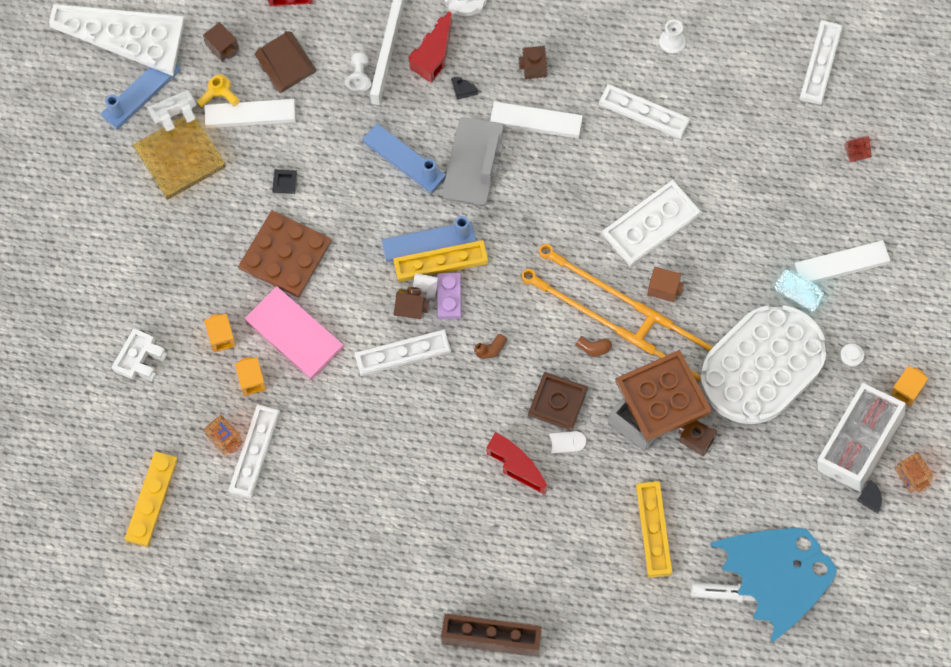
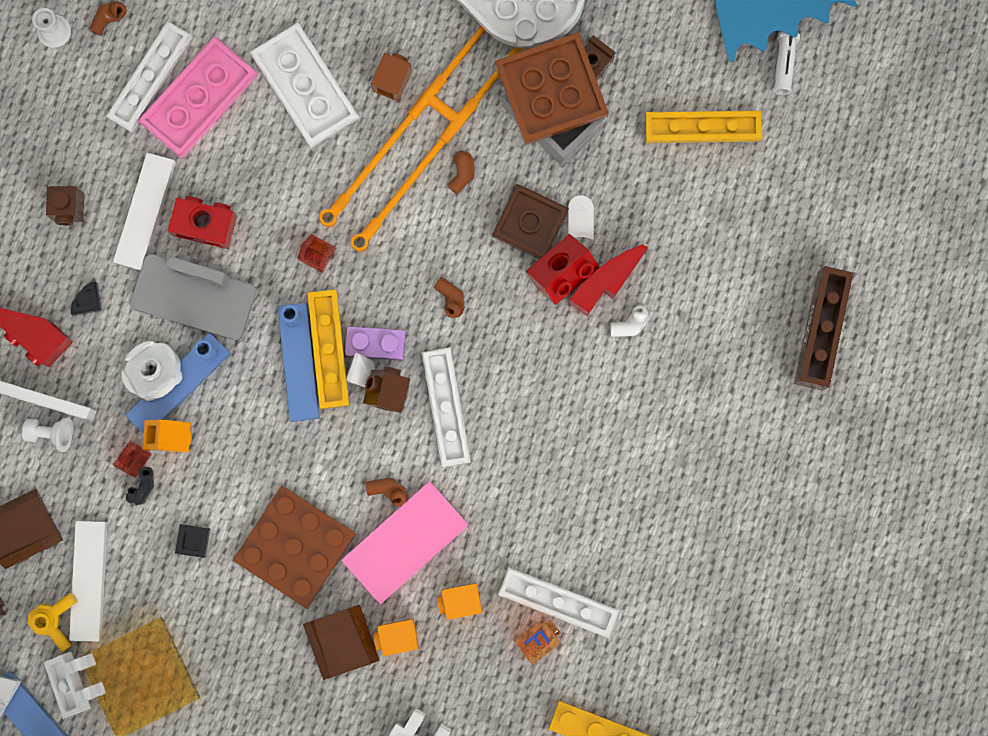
camera: 90 degrees left, 15 degrees up
(214, 293) = (341, 642): none -> reddish brown slope
(322, 143) = (146, 484): none -> black arm
(335, 317) = (390, 488): none -> dark orange arm
(344, 132) = (132, 458): none -> clear red slope
(362, 152) = (166, 436): none -> light orange brick
(410, 146) = (166, 374): none -> white plate
(482, 489) = (633, 325): none -> white arm
(517, 245) = (316, 253): none -> clear red slope
(520, 425) = (562, 269): none -> red brick
(531, 147) = (187, 212): none -> red brick
(632, 147) = (198, 97): none -> bright pink tile
(690, 75) = (106, 14): none -> dark orange arm

